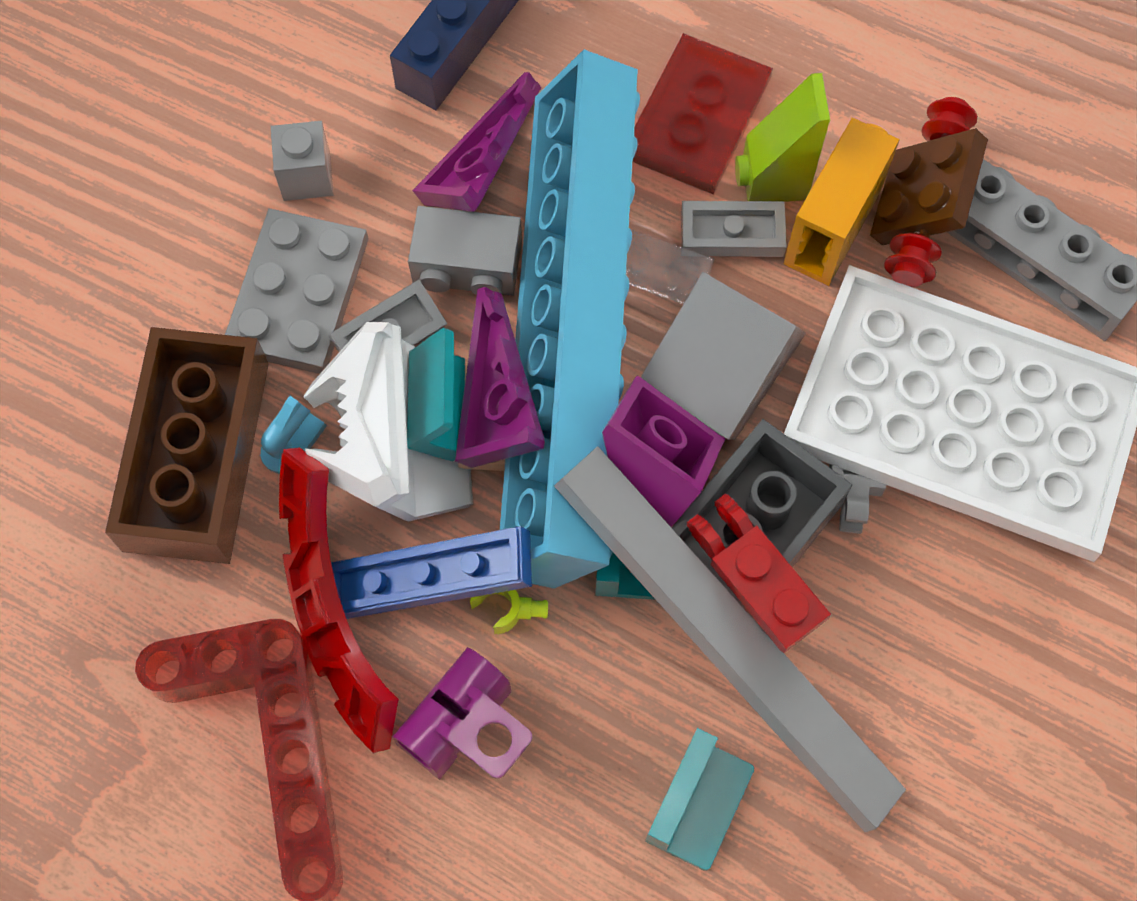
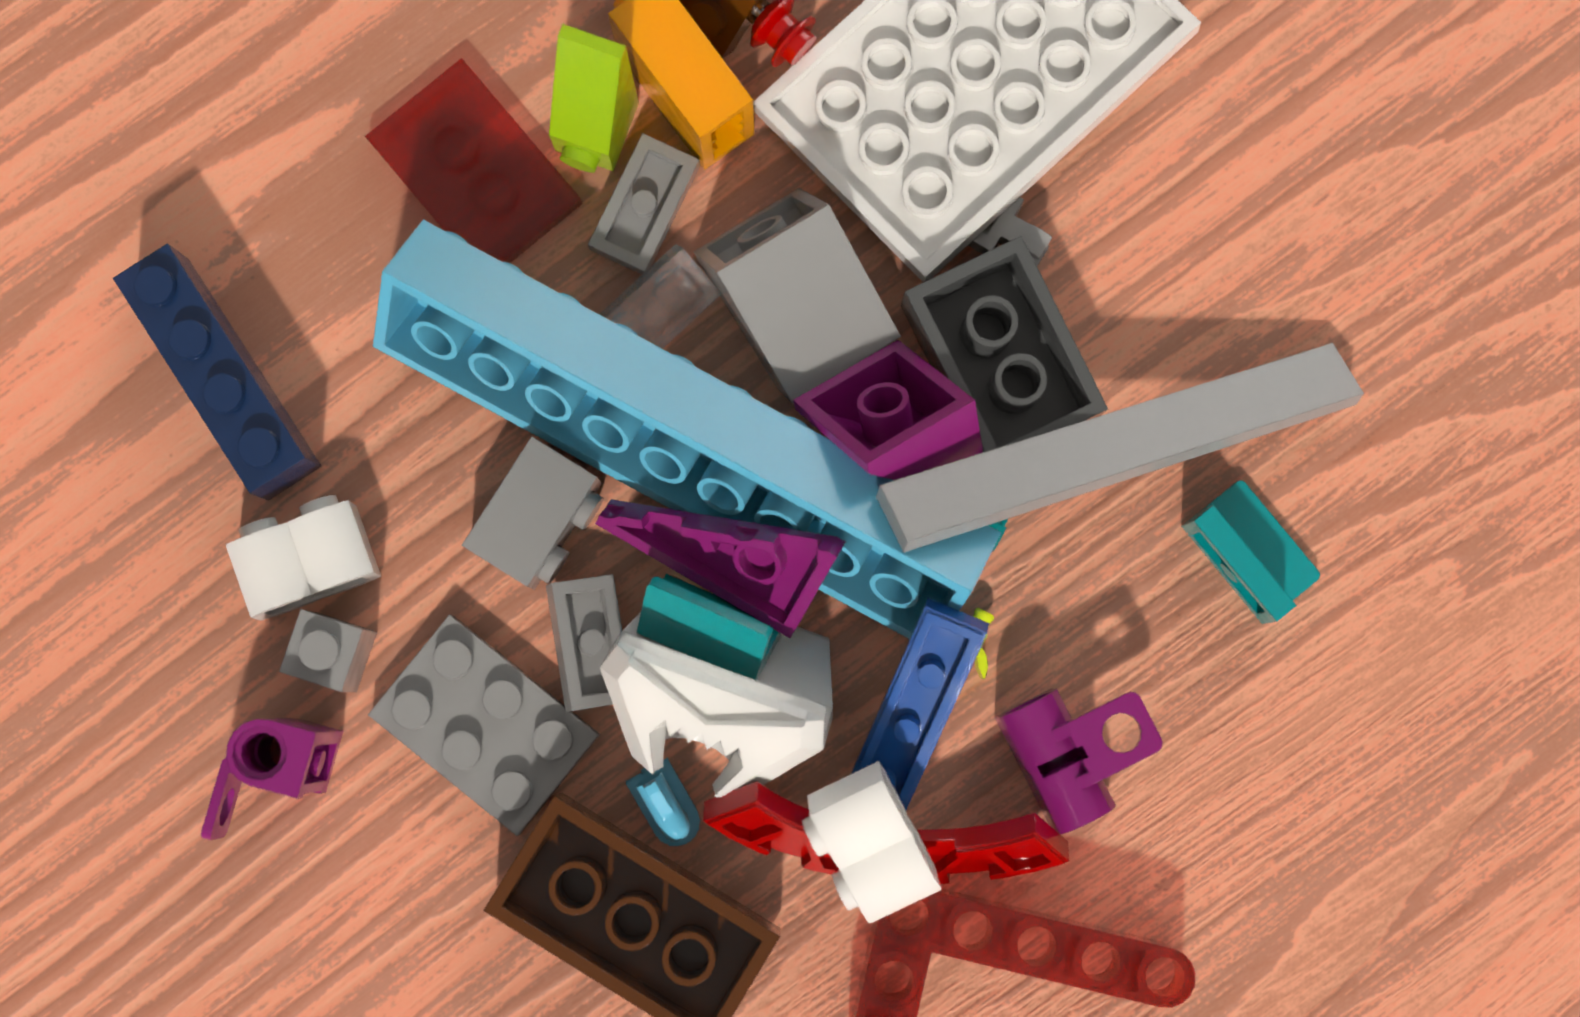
camera: 70 degrees left, 15 degrees up
(205, 151) = (304, 765): none -> magenta piece
(317, 577) = (871, 843): none -> white brick
(362, 118) = (303, 558): none -> white brick
(472, 163) = (426, 458): magenta wing -> none
(760, 577) = (1083, 382): red hinge -> none

